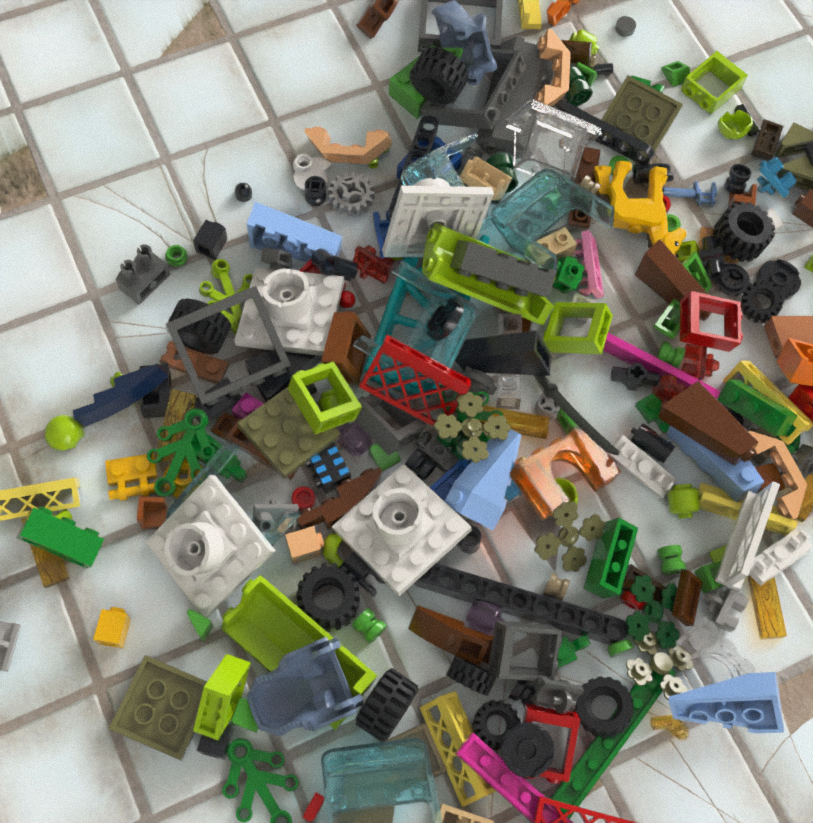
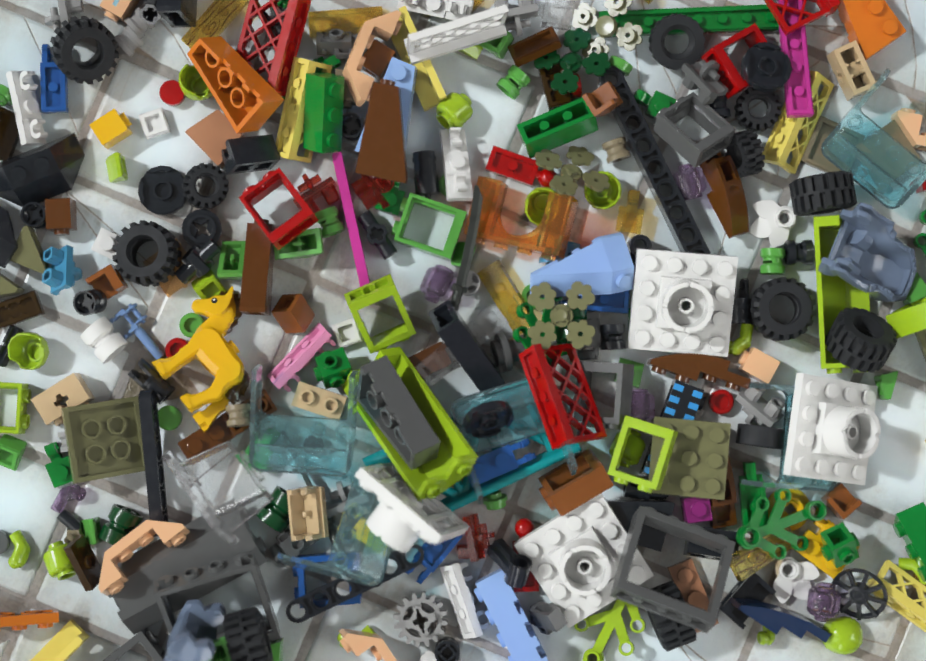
camera: 130 degrees left, 20 degrees up
(78, 465) = (860, 594): none -> black wheel
(99, 436) = (823, 601): none -> clear purple head
(125, 475) = (839, 545): none -> green brick
(131, 436) = (796, 581): none -> white plate
(255, 491) = (760, 436): none -> black tyre
(258, 639) = (861, 339): none -> black tyre
(338, 226) = (462, 600): none -> white plate
(361, 647) = (799, 252): none -> black wheel
(381, 297) = (495, 500): none -> bright green plate
(398, 652) = (769, 223): none -> white plate
(408, 311) = (500, 461): none -> blue hinge
(497, 553) = (630, 217): none -> clear yellow plate
(526, 553) = (606, 198): none -> lime hair
(567, 383) = (437, 283): none -> clear purple head
(606, 506) = (517, 167): none -> red plate
(606, 602) = (603, 99): none -> dark orange panel
(608, 33) = (21, 551): none -> lime arm
(620, 76) = (68, 494): none -> clear purple arm
(624, 284) = (293, 313): none -> dark orange panel
(627, 397) = (457, 225): none -> bright green window
(687, 123) = (49, 401): none -> tan brick
(705, 167) = (106, 342): none -> white wheel
(763, 342) = (250, 154): none -> black hinge

